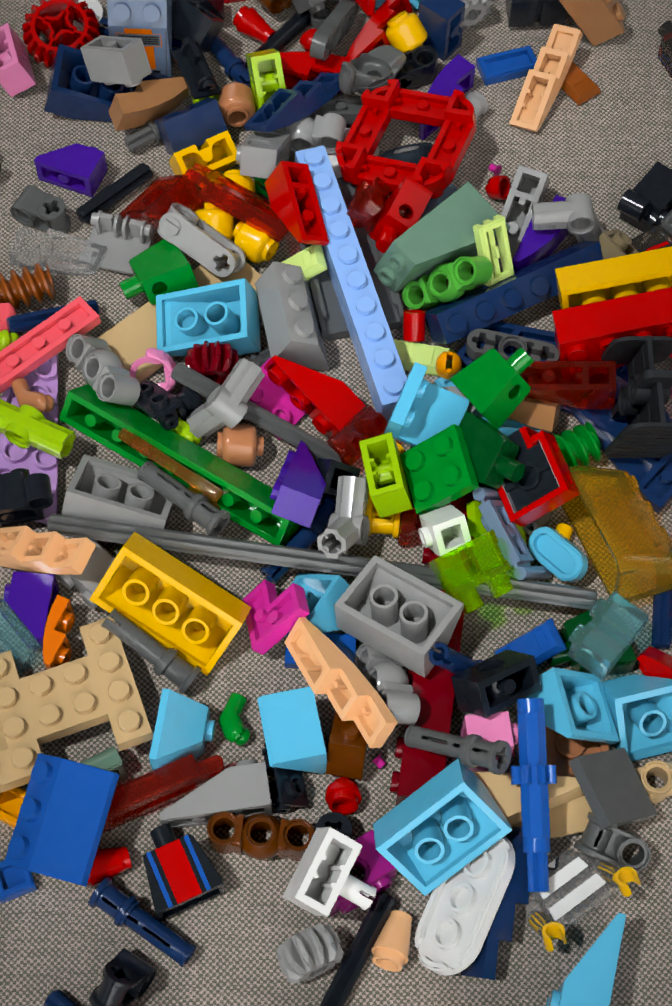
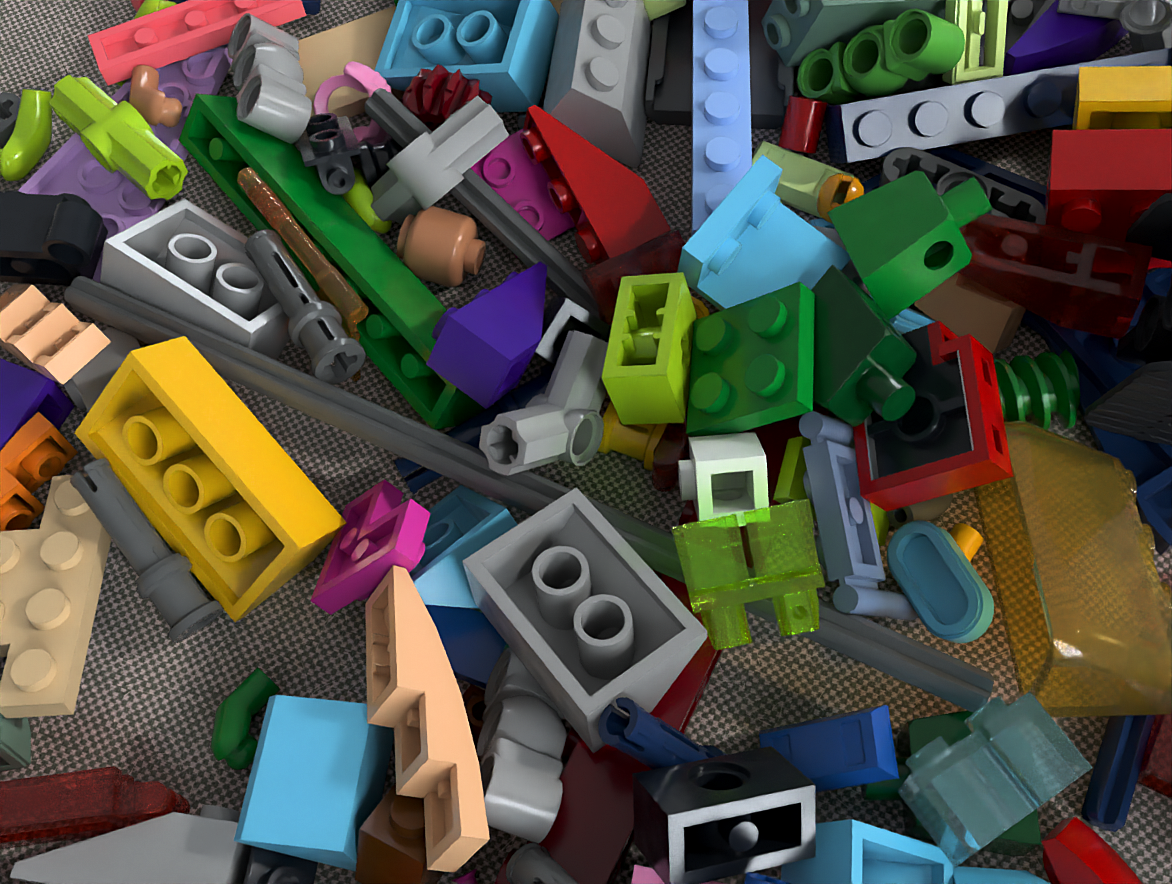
camera: 25 degrees right, 0 degrees up
(180, 729) = (113, 712): medium azure slope -> none

